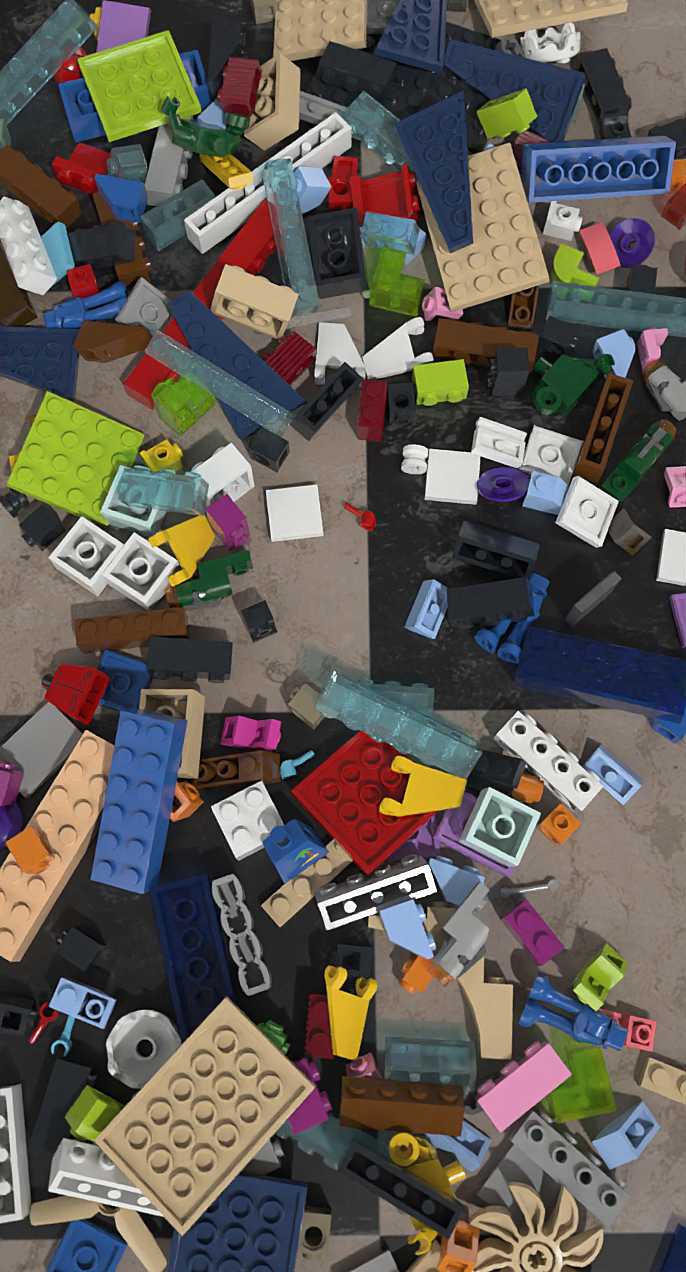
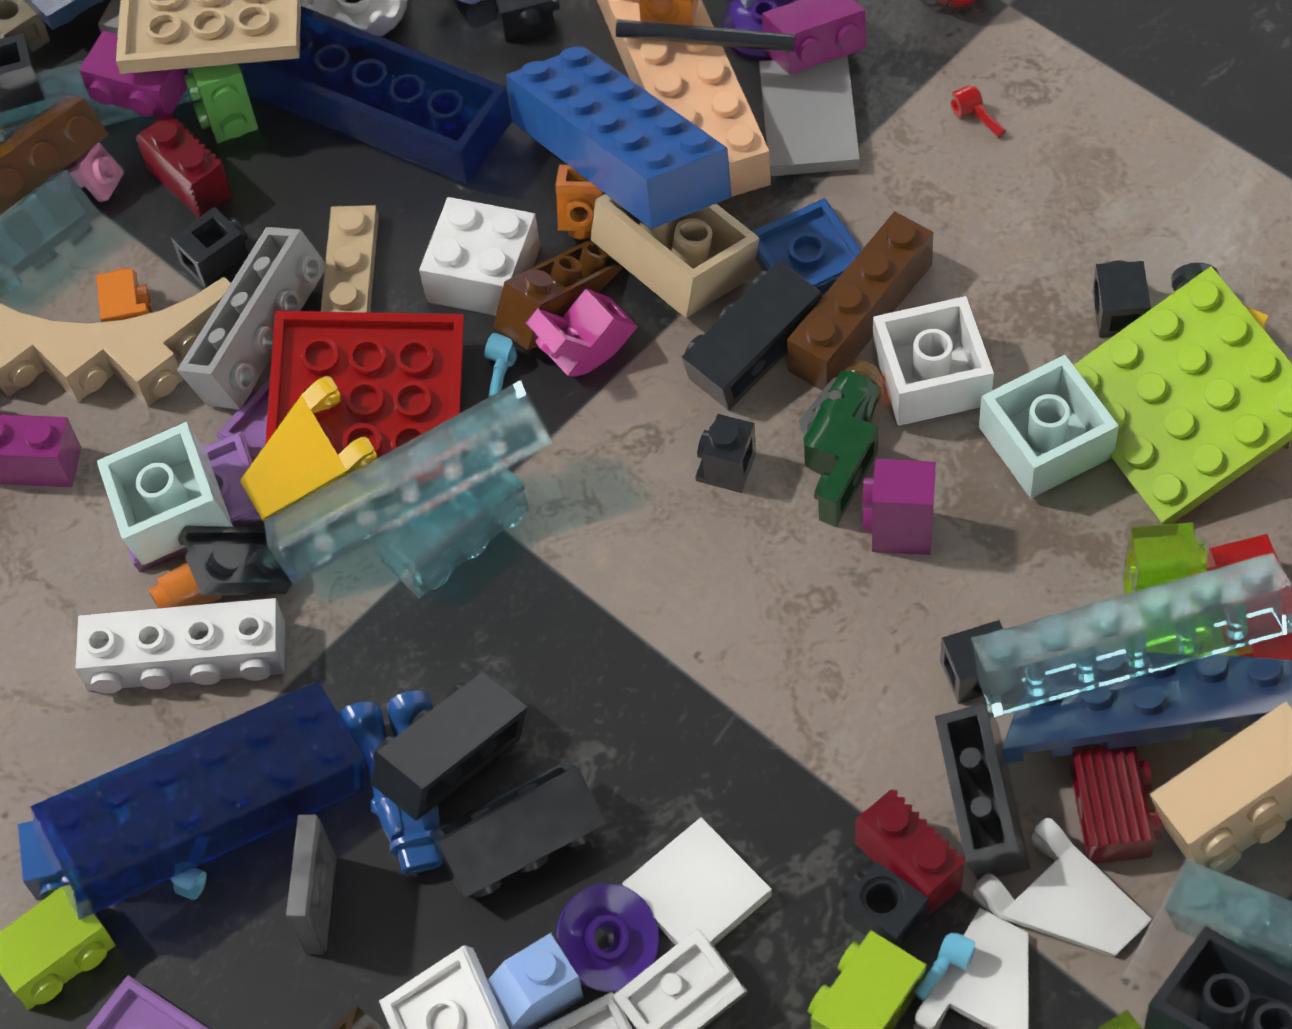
camera: 140 degrees right, 15 degrees down
(42, 814) = (705, 35): none -> black bar
(76, 690) = (836, 181): red torso -> none
(86, 555) = (1021, 313): white brick -> none
(154, 457) = (1095, 511): yellow brick -> none
(164, 490) = (1006, 422): clear light blue brick -> none
(189, 543) = (921, 431): yellow flag -> none
(226, 474) = (982, 547): white brick -> none
(244, 943) = (362, 154): light grey brick -> none
(294, 513) = (849, 627): white tile -> none
(294, 848) = (397, 250): blue torso -> none
(303, 705) = (565, 427): dark tan brick -> none
(347, 1011) = (160, 188): yellow flag -> none
(367, 517) = (743, 715): red hand -> none
(395, 368) = (955, 951): none -> medium azure hand
(405, 928) = (168, 297): light blue slope -> none
(414, 459) = (772, 849): white wheel -> none
(428, 609) = (532, 676): light blue slope -> none
(453, 882) = (165, 405): light blue slope -> none
(466, 939) = (97, 349): light grey plate -> none
(552, 885) = (48, 532): light grey hinge -> none
(558, 825) = (96, 582): orange brick -> none
(613, 774) = (83, 725): light blue slope -> none

